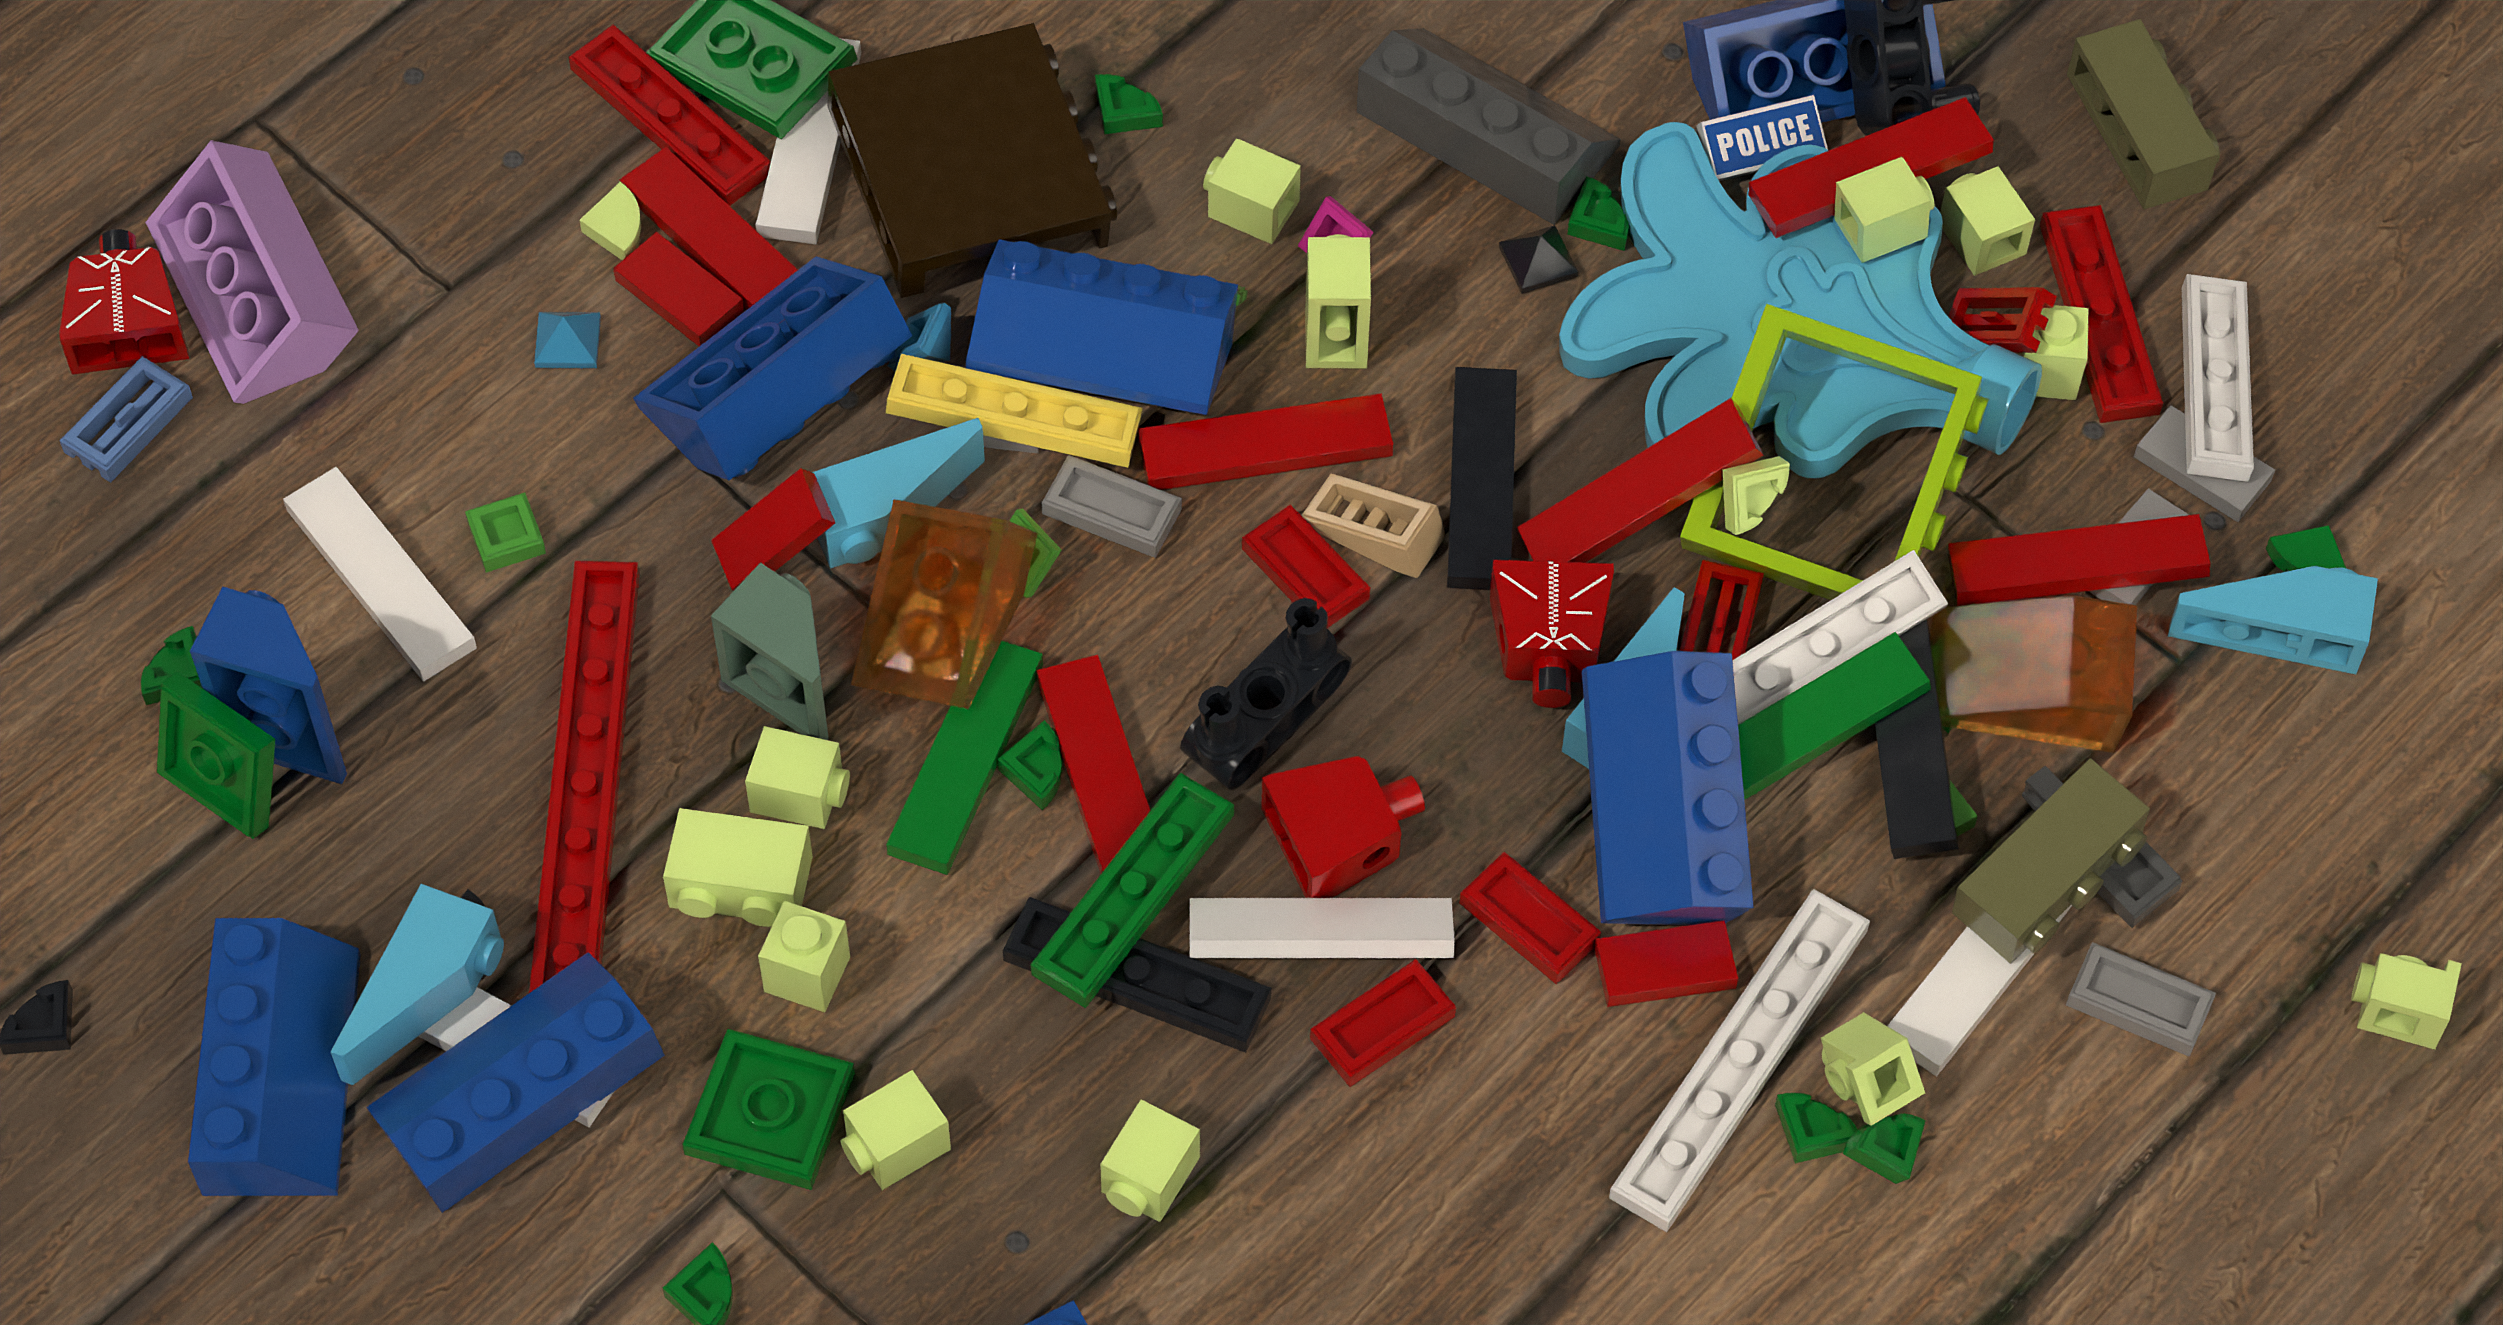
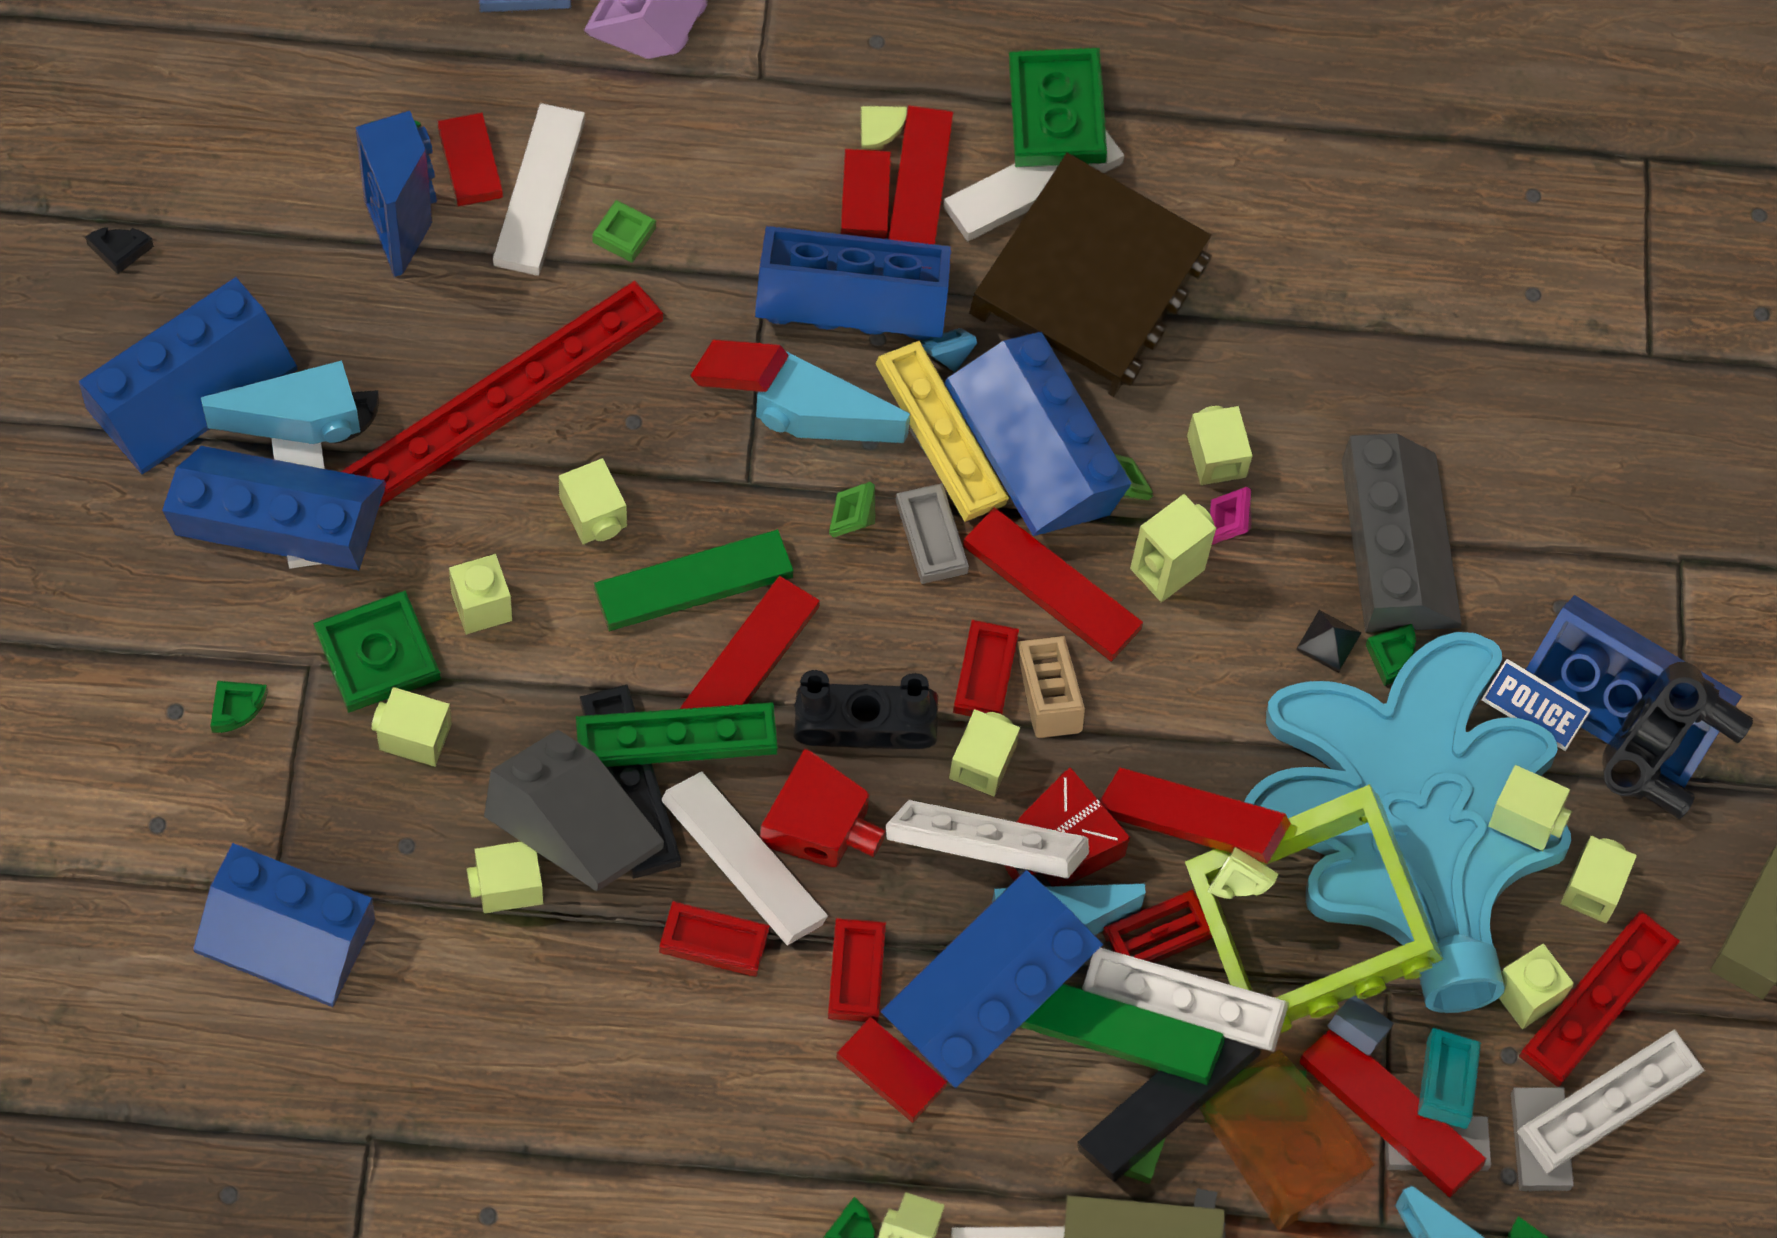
camera: 45 degrees right, 5 degrees up
(215, 755) = (338, 197): green tile -> none
(314, 615) = (470, 159): none -> red tile
(567, 340) = (780, 163): dark azure slope -> none
(669, 114) = (980, 97): red tile -> none
(736, 866) = (508, 516): yellowish green brick -> none
(771, 649) = (662, 425): sand green slope -> none
(941, 602) = (774, 489): clear orange slope -> none
(1035, 765) = (720, 623): green tile -> none
(1125, 106) = (1219, 331): green tile -> none
(1143, 1040) = (570, 811): none -> dark grey slope
(1400, 628) = (984, 752): none -> yellowish green brick
(1481, 475) = (1141, 720): black tile -> none
(1507, 686) = (988, 838): none -> white tile
(1739, 1060) = (864, 1159): white tile -> none
(1926, 142) = (1592, 792): red tile -> none
(1972, 522) = (1360, 1025): none -> sand blue tile
(1977, 325) = (1522, 949): red tile -> none
(2087, 488) = (1449, 1078): none -> teal tile

